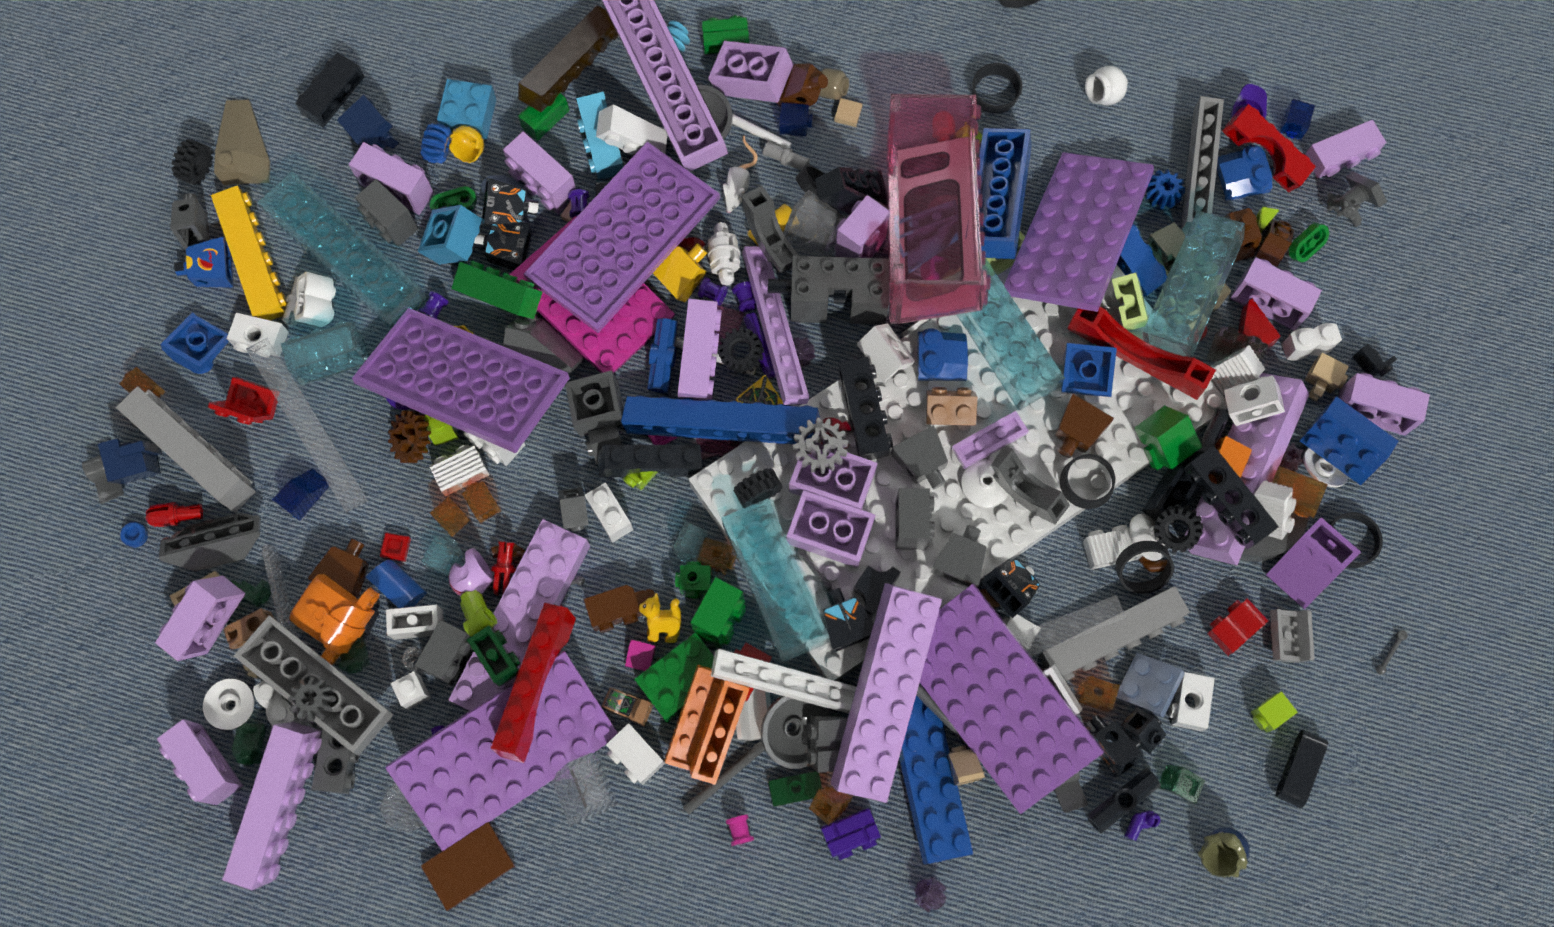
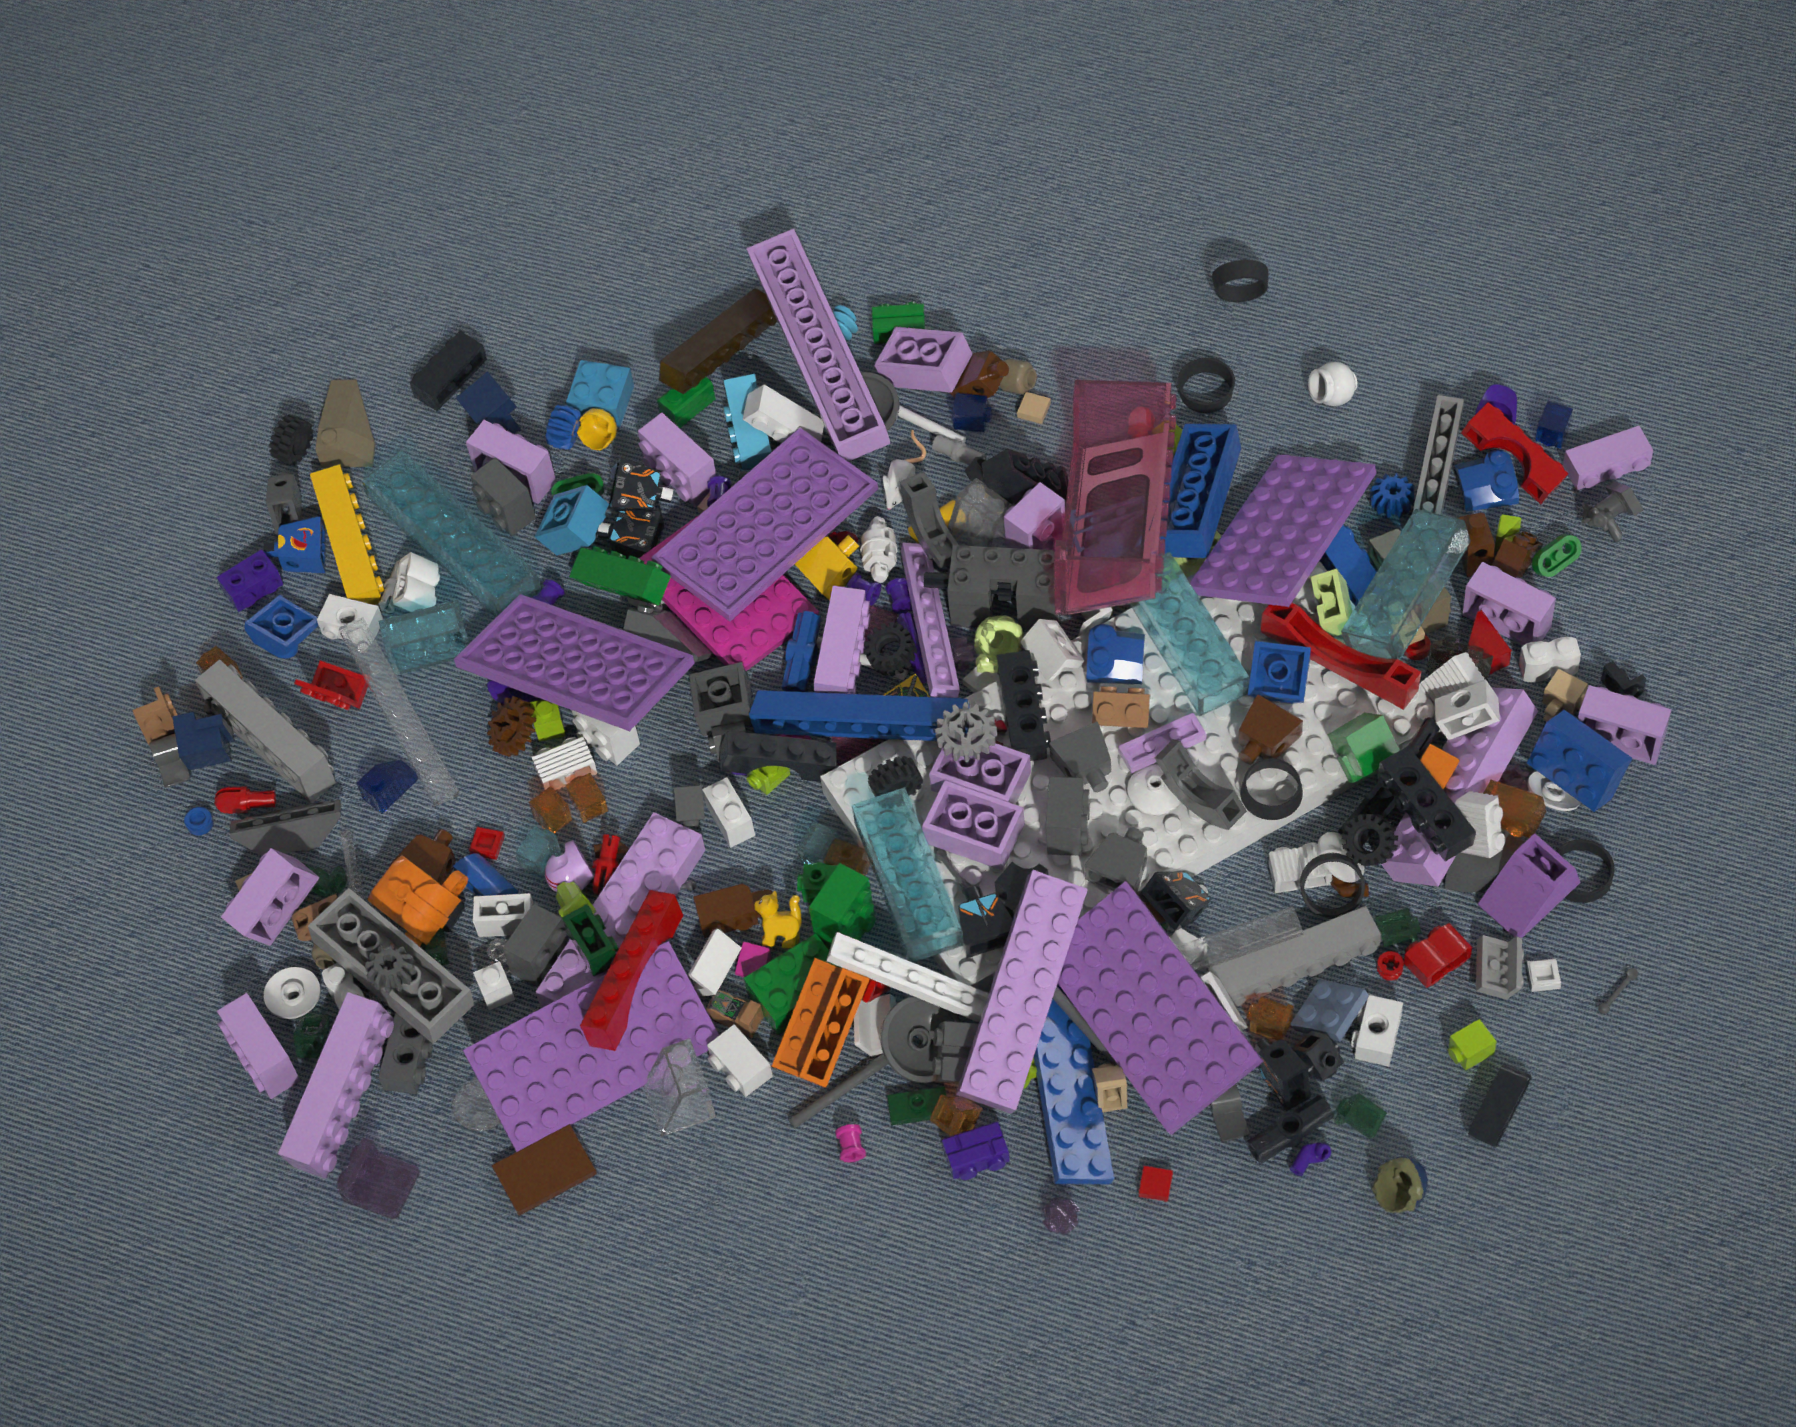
camera: 10 degrees right, 15 degrees down
(85, 441) = (156, 717): none -> medium nougat bracket
(164, 299) = (250, 580): none -> dark purple brick
(318, 887) = (376, 1180): none -> clear purple bracket
(606, 663) = (713, 963): none -> white panel
(822, 374) = (976, 681): none -> white tile
(835, 342) = (996, 637): none -> yellowish green hair
(1009, 855) = (1156, 1183): none -> red tile
(1190, 641) = (1390, 956): none -> red bush
(1202, 603) = (1397, 927): none -> clear green bracket
(1327, 639) = (1543, 975): none -> white tile

